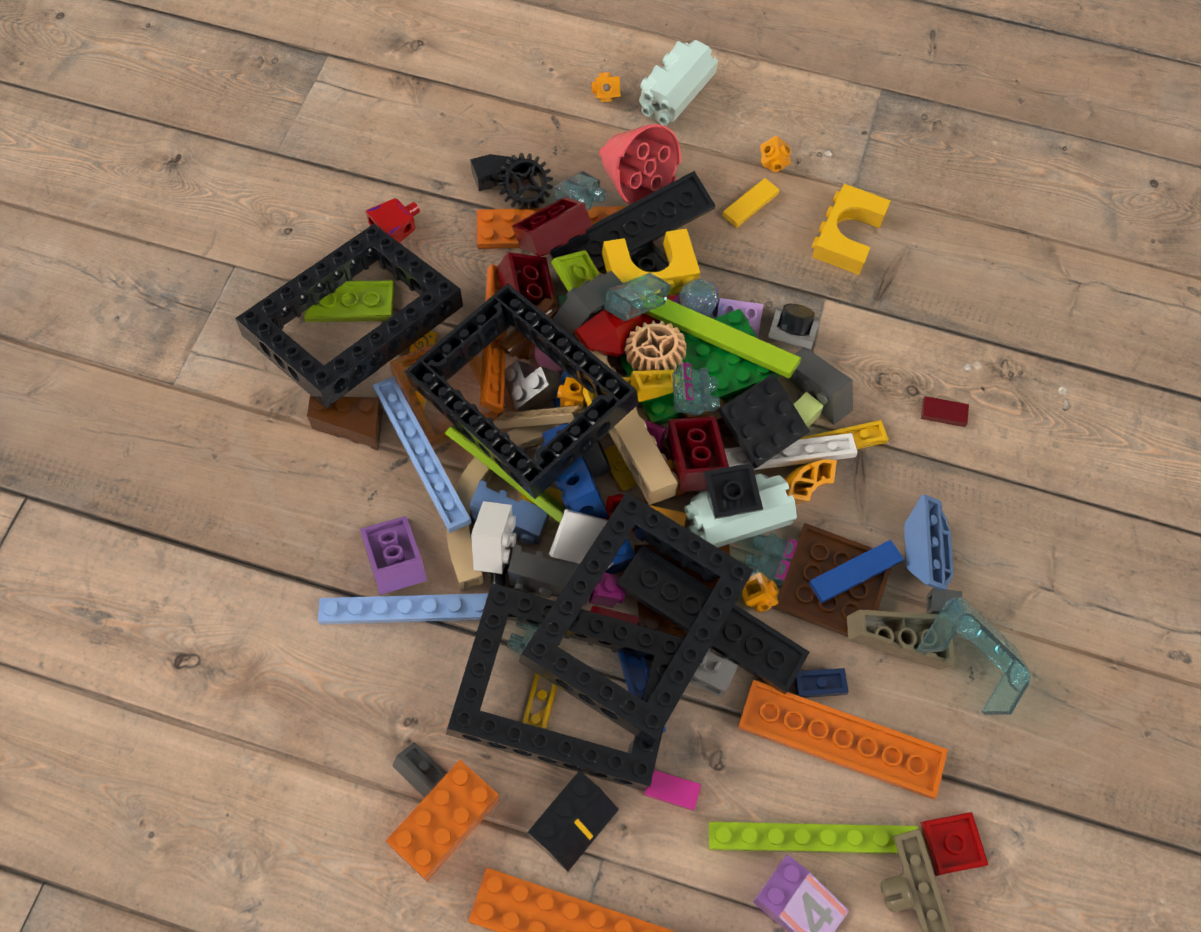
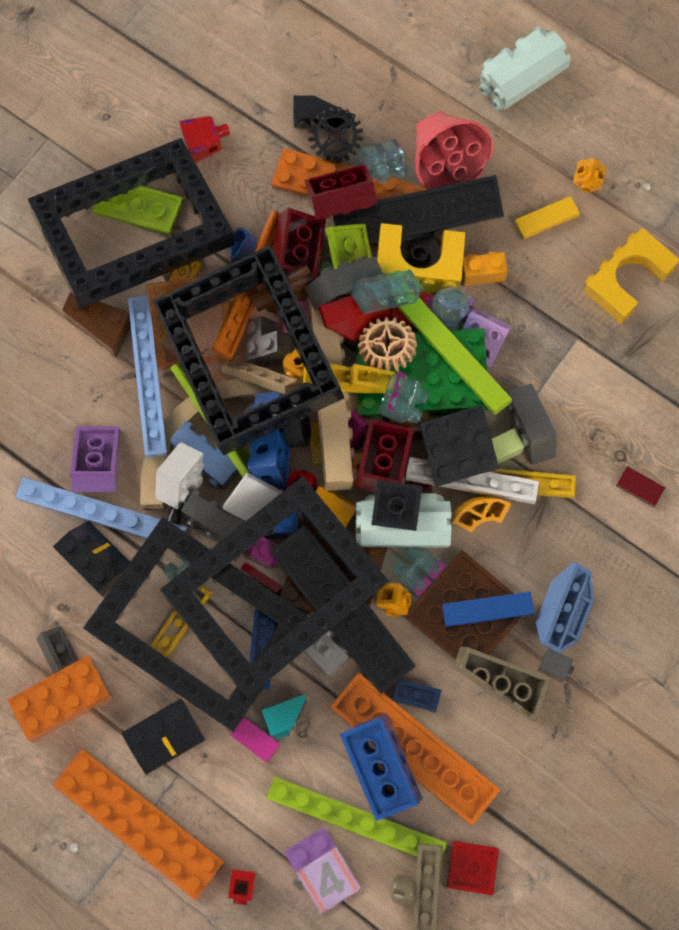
camera: 25 degrees right, 10 degrees up
(425, 657) = (92, 556): none -> black slope
(471, 301) = (244, 244): none -> blue helmet
(613, 87) = (459, 54): light orange brick -> none
(694, 753) = (284, 716): none -> teal slope
(716, 259) = (484, 268): none -> light orange brick
(794, 320) = (533, 360): piece -> none
(801, 766) = (374, 780): none -> blue brick
(968, 623) = (558, 686): clear light blue windscreen -> none

